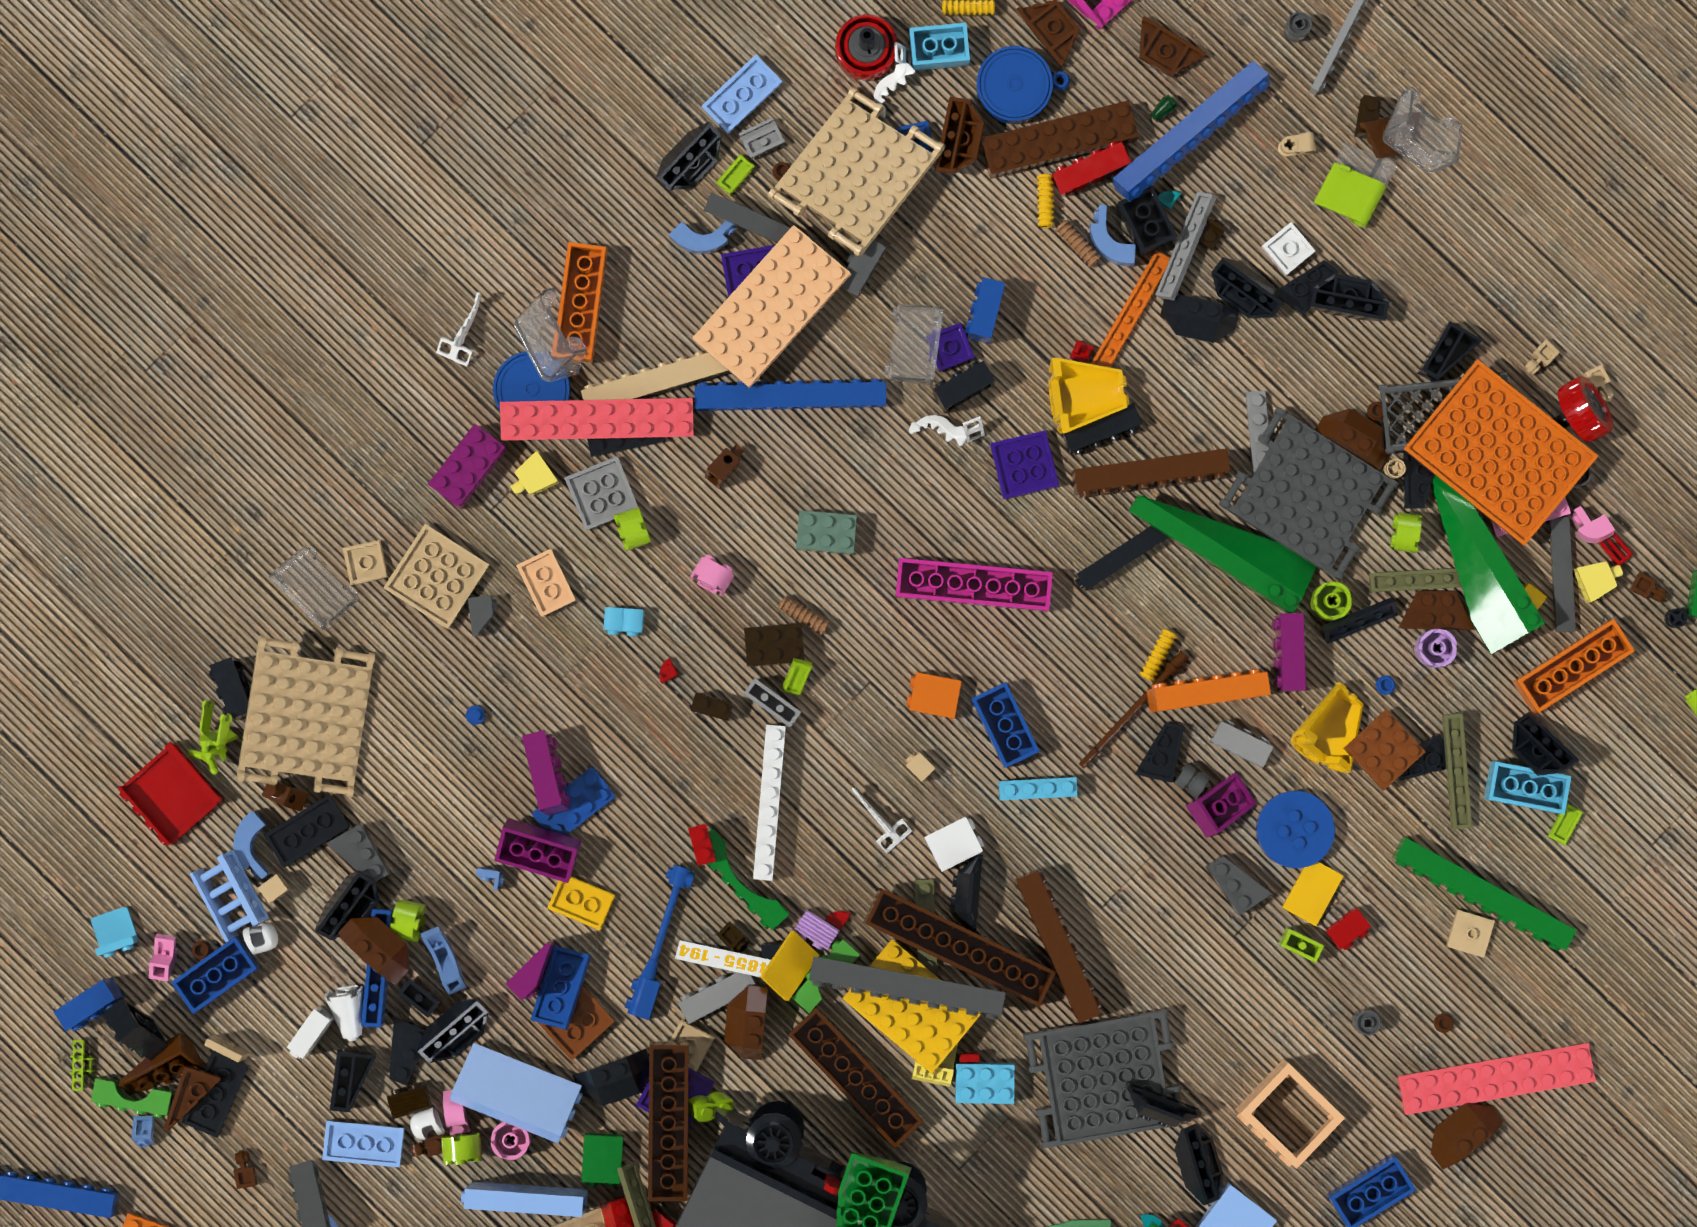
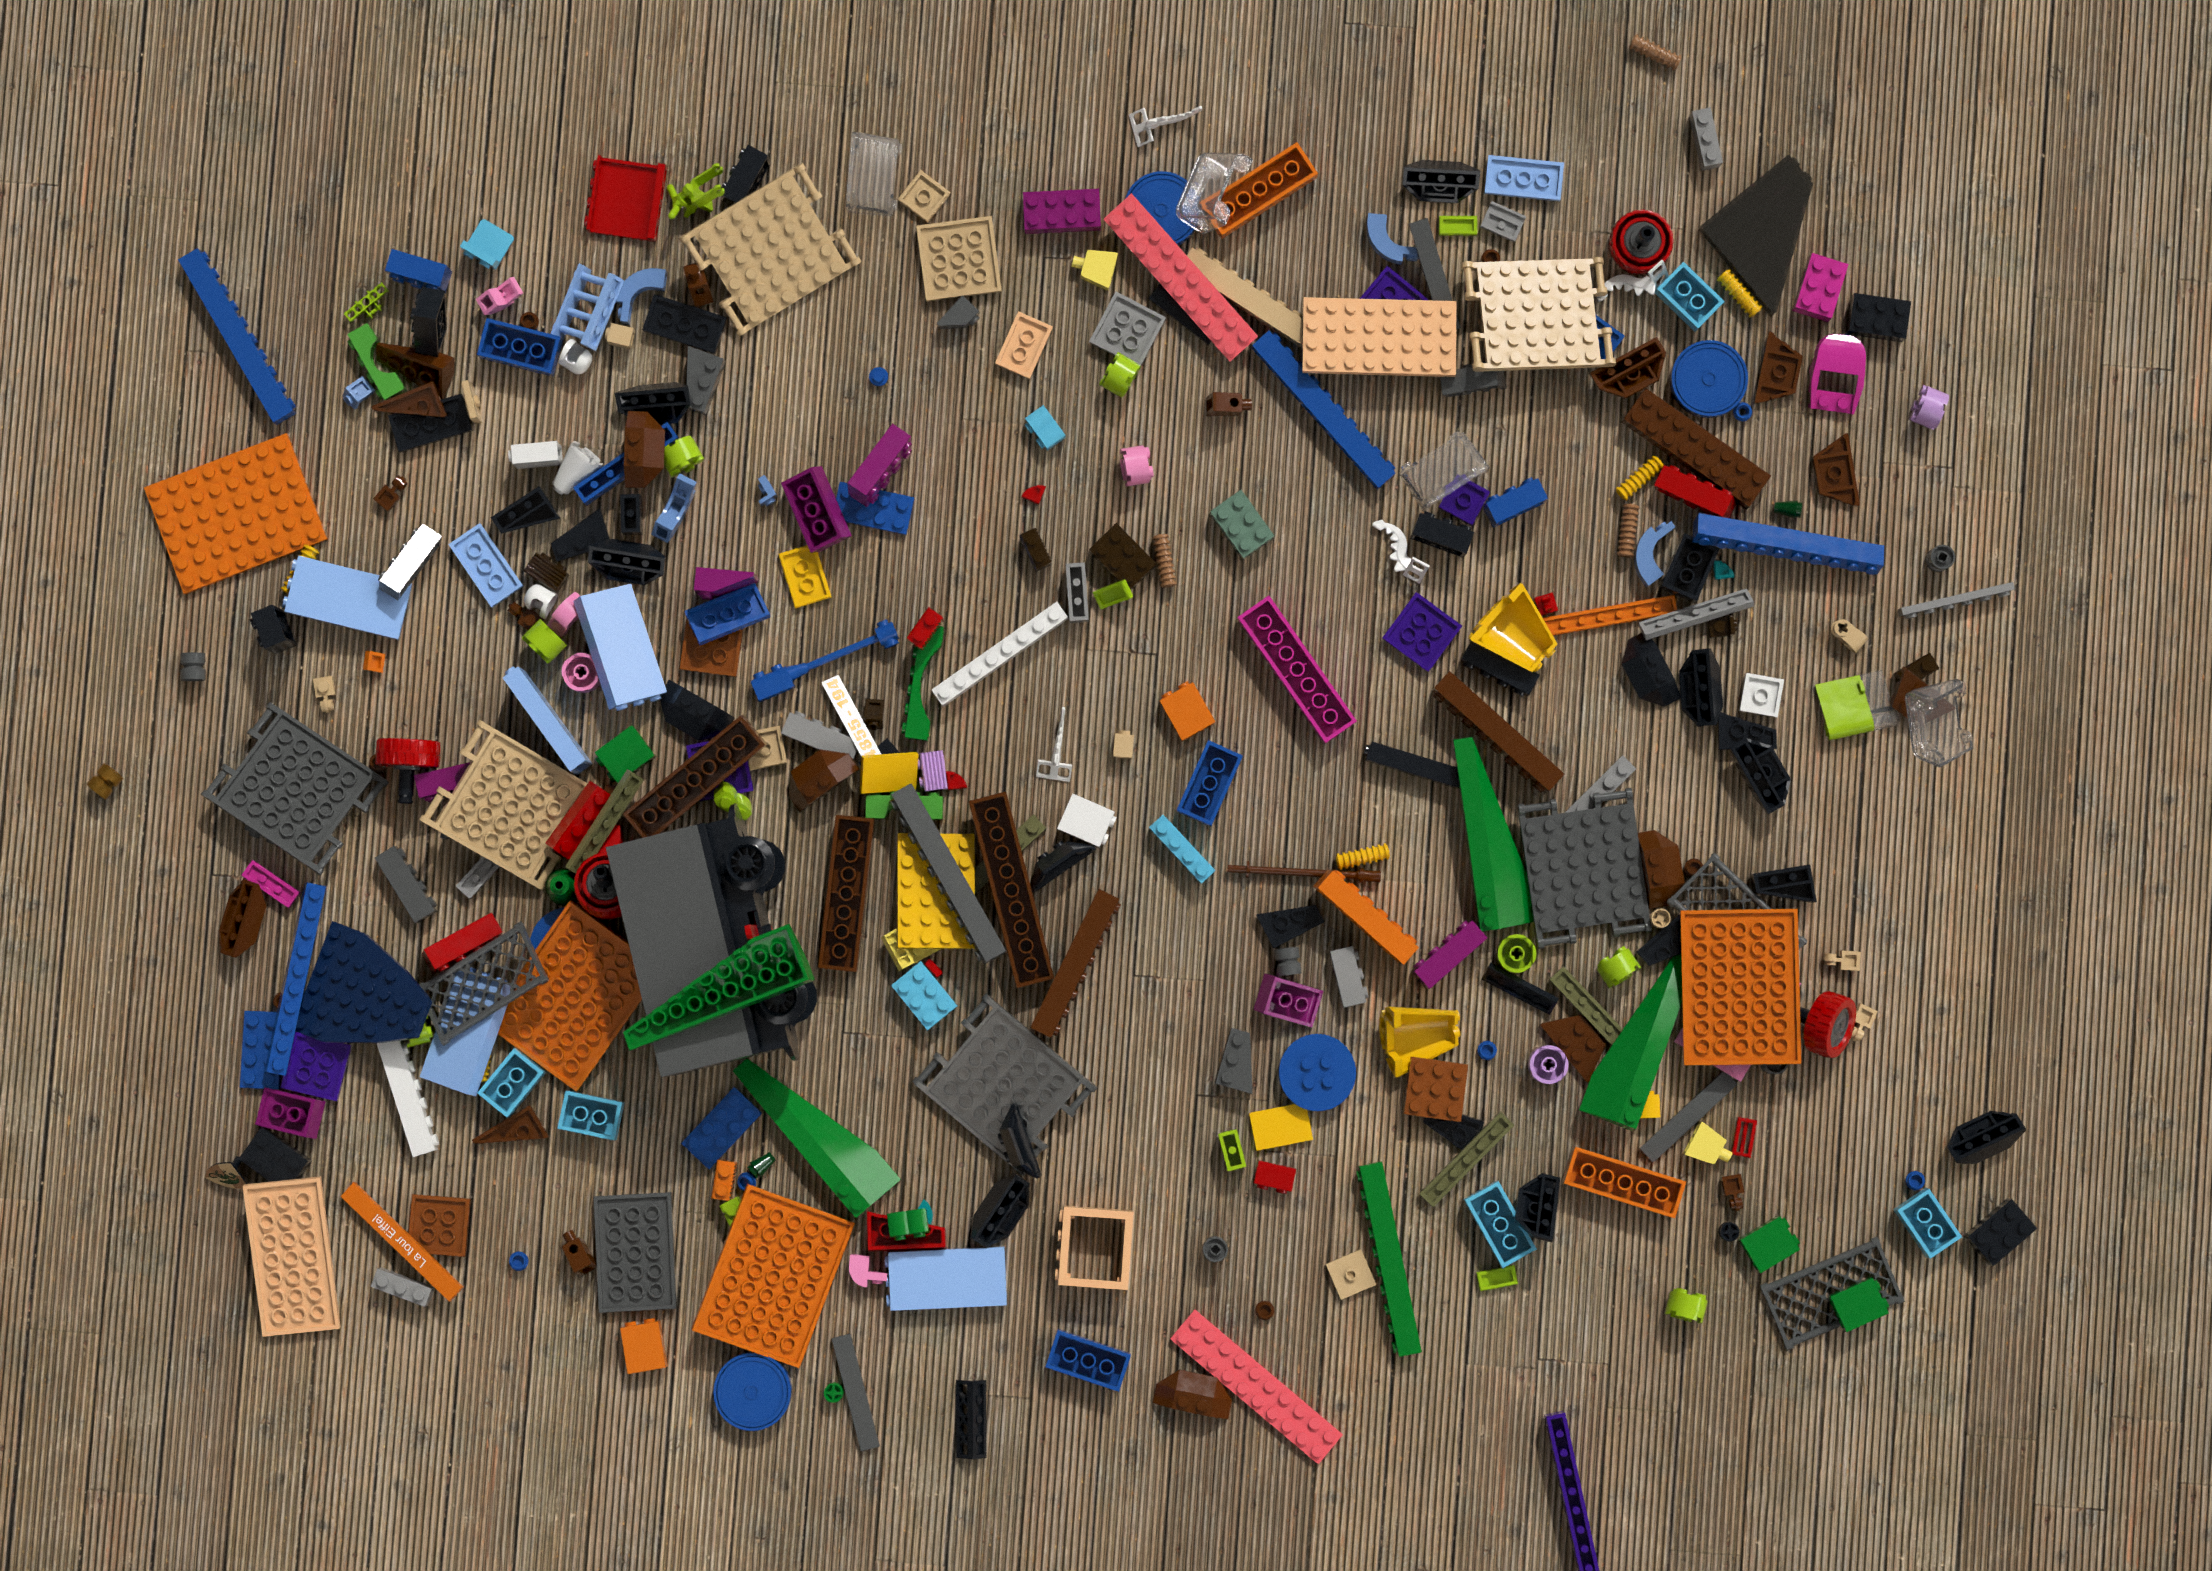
camera: 55 degrees right, 0 degrees up
(1592, 531) = (1742, 1111): bright pink brick -> none

